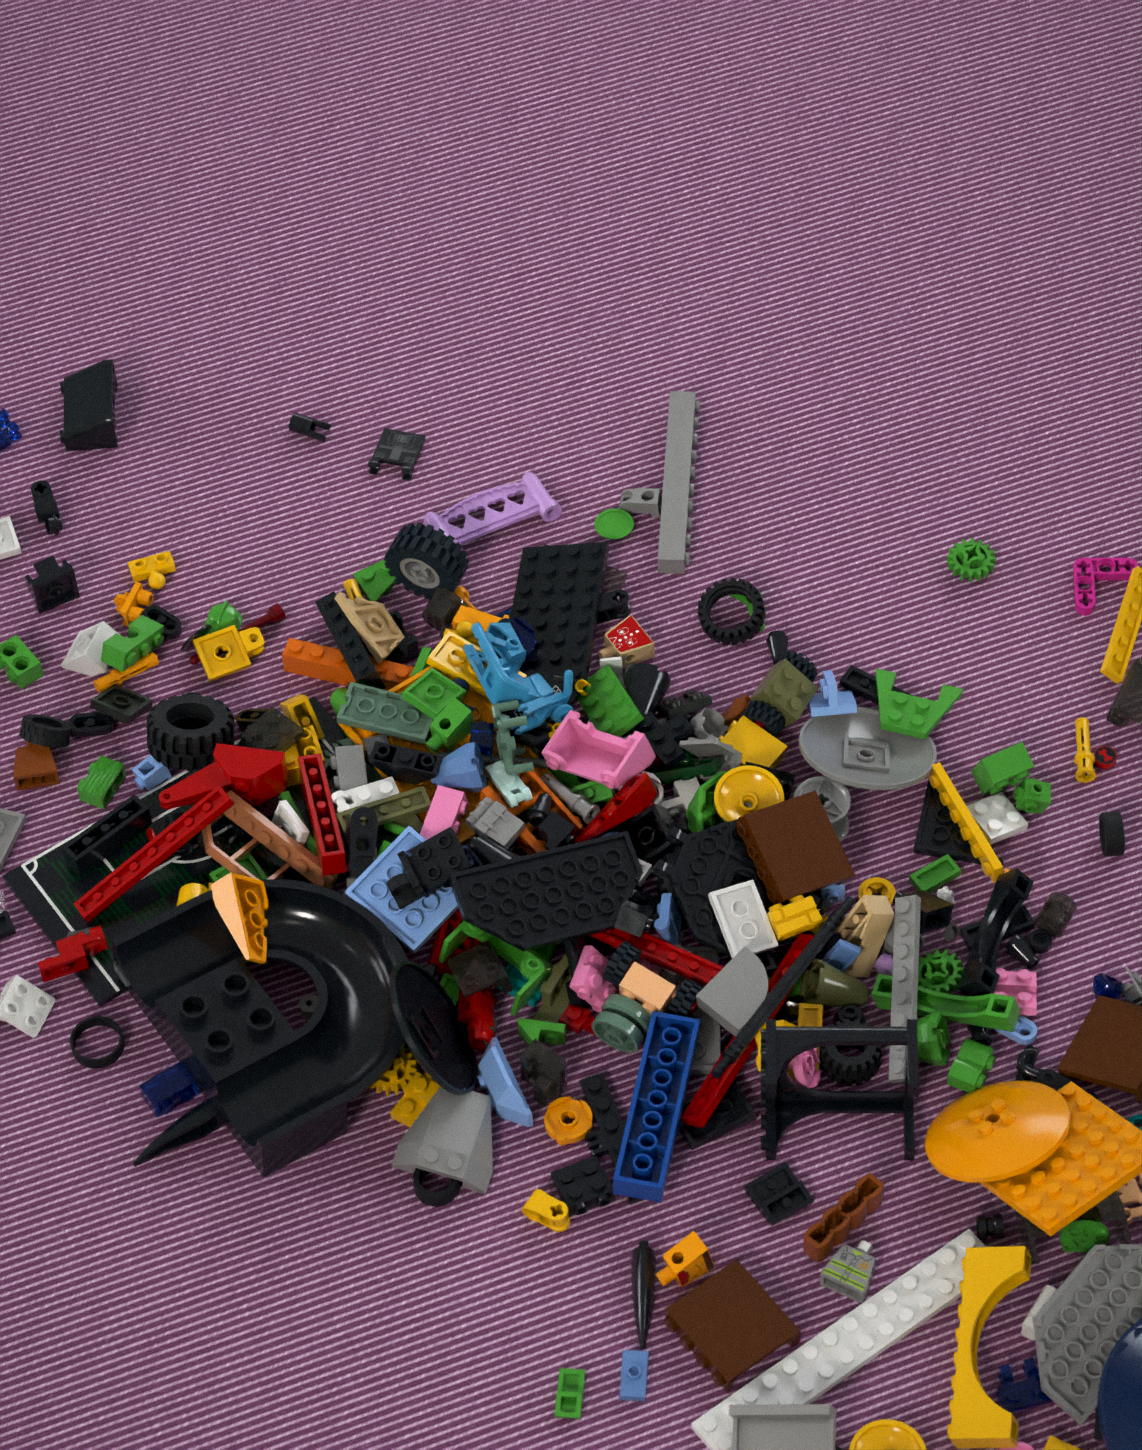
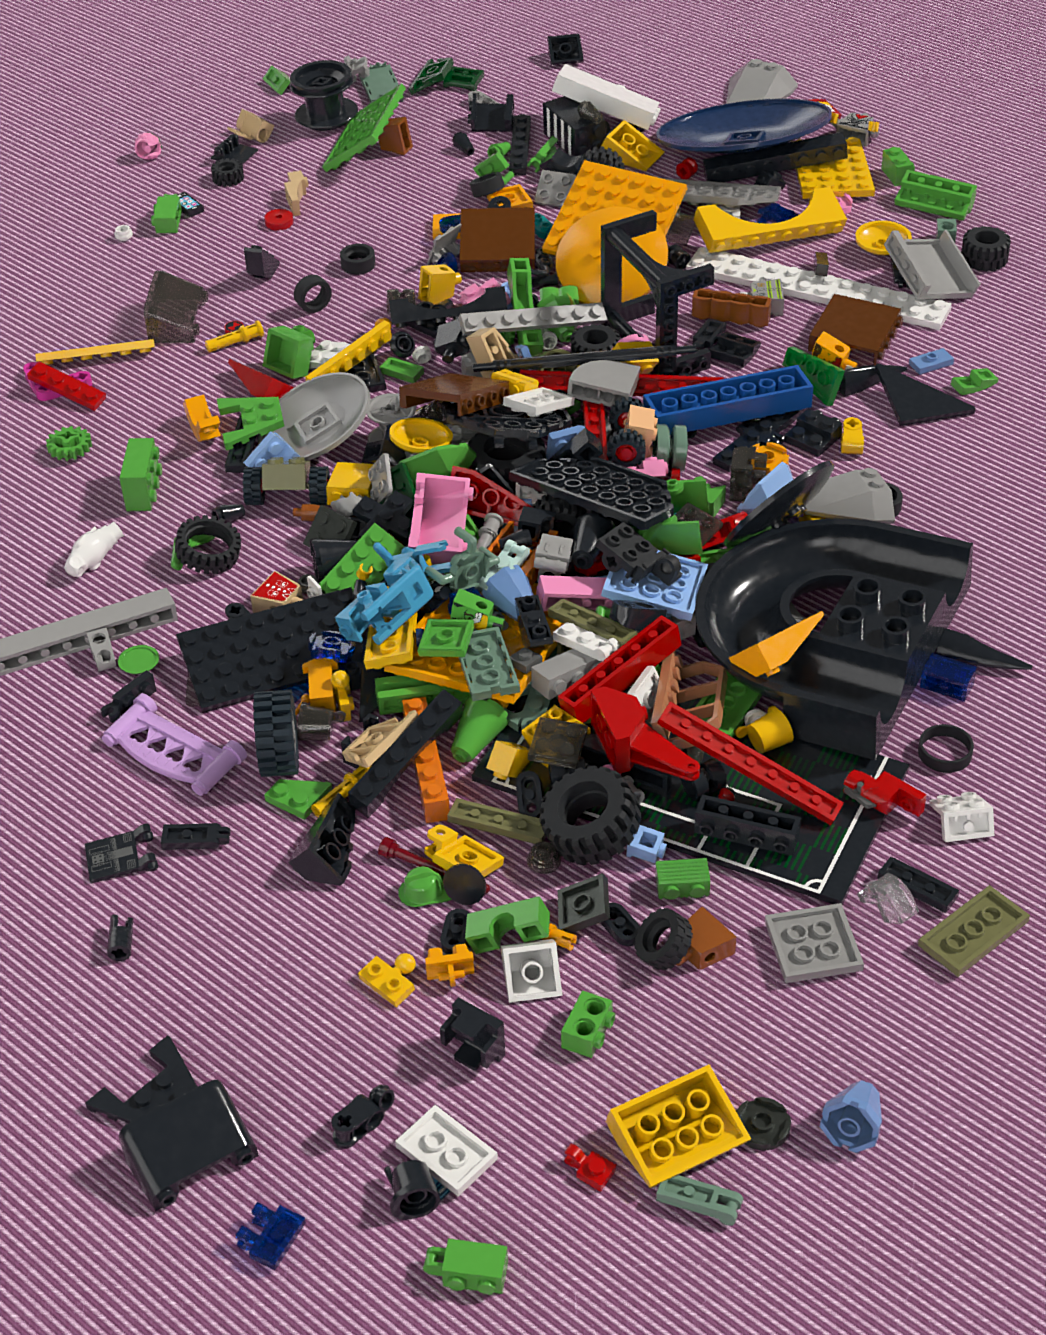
camera: 120 degrees left, 10 degrees down
(148, 414) = (163, 1088): none -> black wing
(257, 687) = (496, 821): none -> olive plate
(302, 572) = (327, 845): none -> black wedge
(379, 498) = (194, 836): none -> black hinge
(567, 502) = (124, 697): none -> black plate
(569, 1308) = (916, 401): none -> black tile
(673, 1230) = (822, 375): none -> green wing
(786, 529) = (91, 549): none -> white animal
(815, 1177) = (708, 334): none -> black plate
(869, 589) = (140, 474): none -> bright green brick
(877, 1360) = (821, 264): none -> black piece
(934, 672) = (200, 418): none -> light orange arch
(965, 744) = (258, 383): none -> red wedge
(968, 882) = (402, 344): none -> black cone
(1067, 958) = (437, 283): none -> yellow torso
(1070, 581) = (66, 386): none -> red plate

